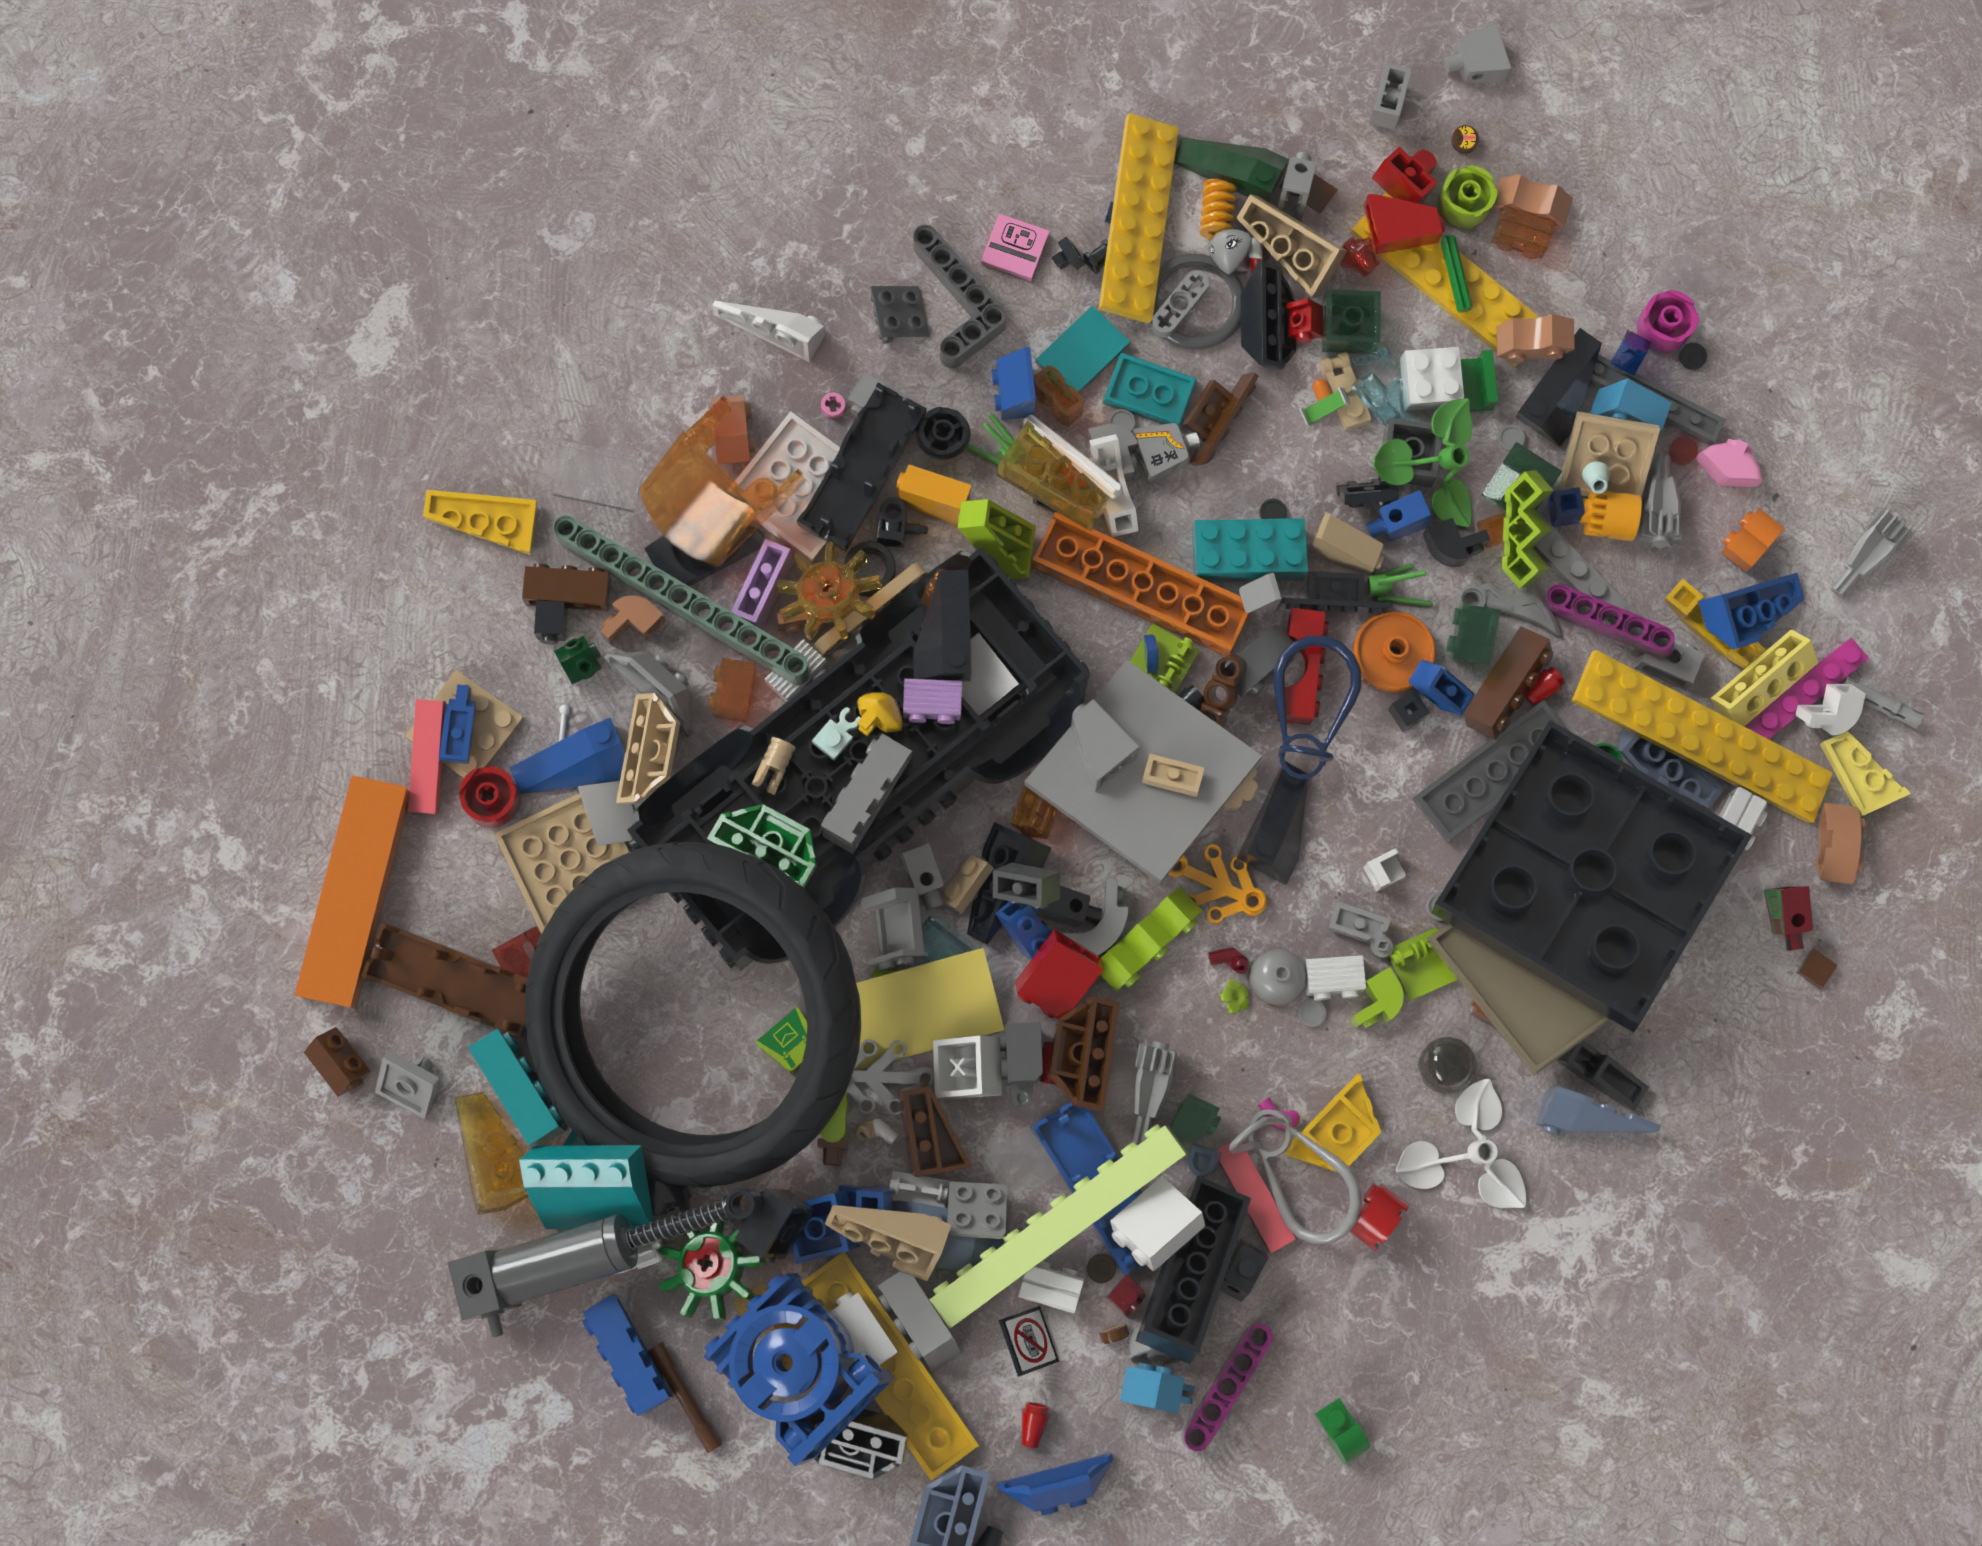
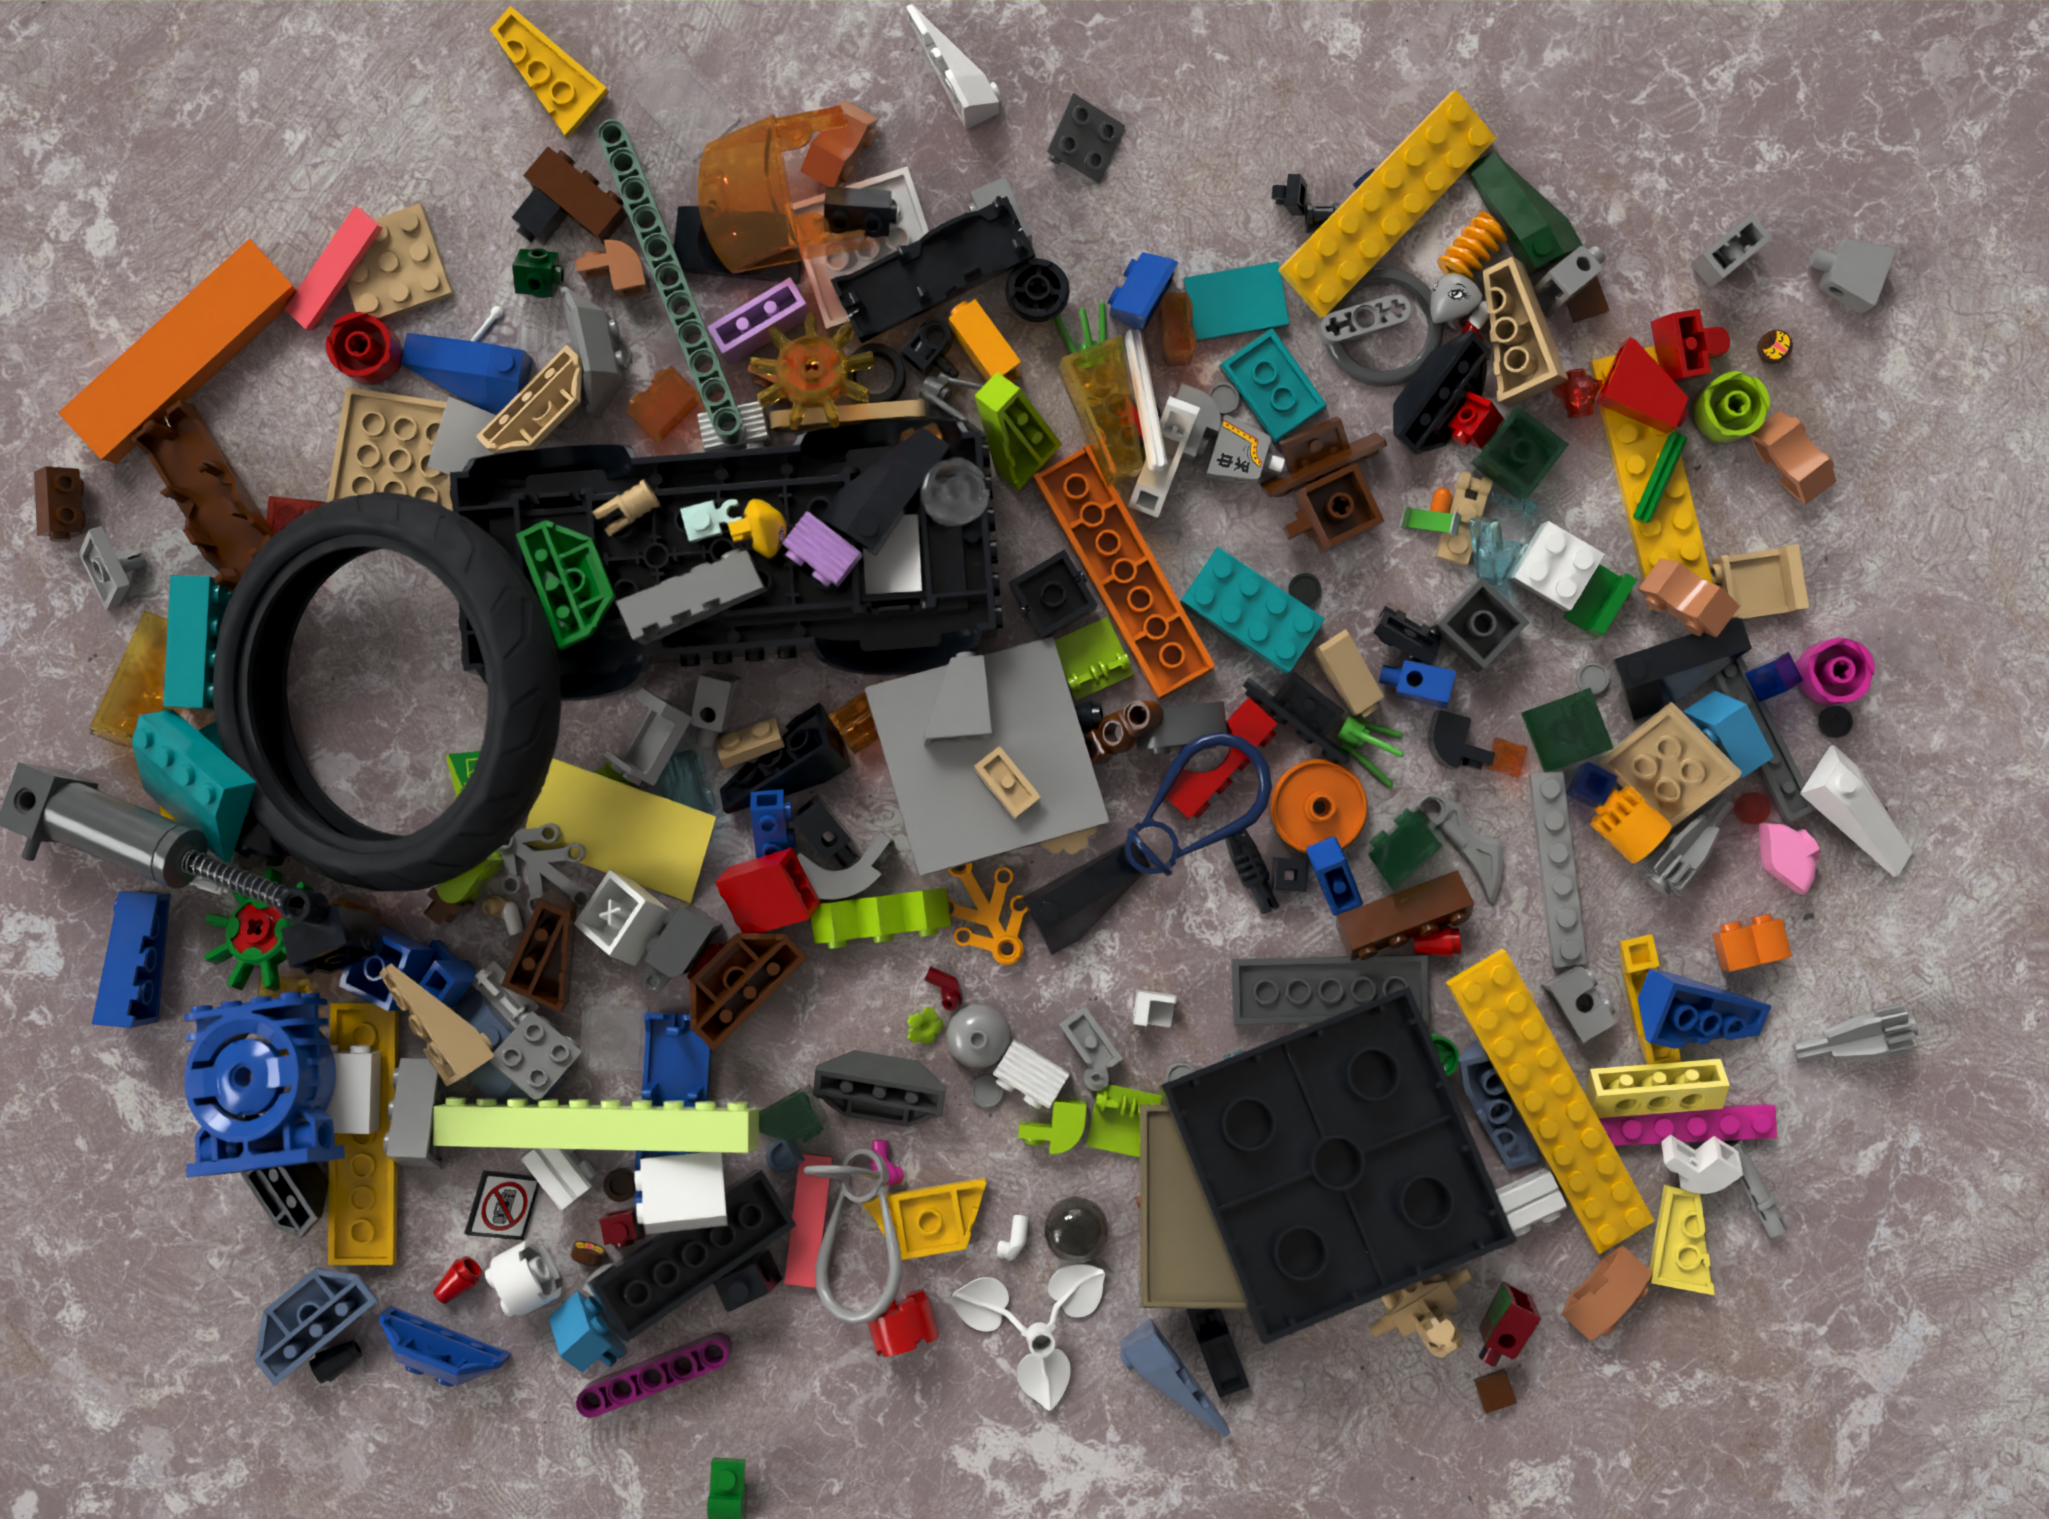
camera: 45 degrees right, 10 degrees up
(458, 727) = (379, 260): blue hinge -> none
(701, 1425) = (161, 1069): reddish brown piece -> none
(783, 459) = (859, 210): none -> black brick
(839, 401) = (956, 177): bright pink bush -> none
(923, 550) = (938, 393): none -> dark grey plant
(962, 293) = (1162, 163): dark grey beam -> none
(995, 598) = (954, 492): none -> clear cylinder
(1015, 247) = (1246, 150): bright pink tile -> none
(1026, 885) = (790, 789): dark grey brick -> none
(1083, 1381) = (524, 1278): none -> white brick
(1105, 632) = (1053, 595): none -> black brick
(1151, 653) = (1082, 646): blue tile -> none
(1152, 1083) = (800, 1039): light grey piece -> none
(1239, 1061) = (880, 1088): none -> dark grey wedge
(1249, 455) = (1316, 515): none -> reddish brown hinge
(1261, 595) = (1225, 664): light grey slope -> none
(1381, 726) = (1252, 870): none -> black hinge
(1412, 1100) = (1017, 1240): none -> white arm
(1454, 426) = (1539, 629): bright green plant -> none
(1522, 233) = (1759, 481): clear orange brick -> none
(1524, 529) = (1532, 778): lime brick -> none
(1576, 294) = (1763, 581): none -> tan panel
(1596, 476) = (1642, 778): light aqua cone -> none
(1618, 631) = (1548, 911): magenta beam -> none
(1723, 942) = (1425, 1310): none -> tan piece
(1745, 402) = (1851, 804): none -> white wedge

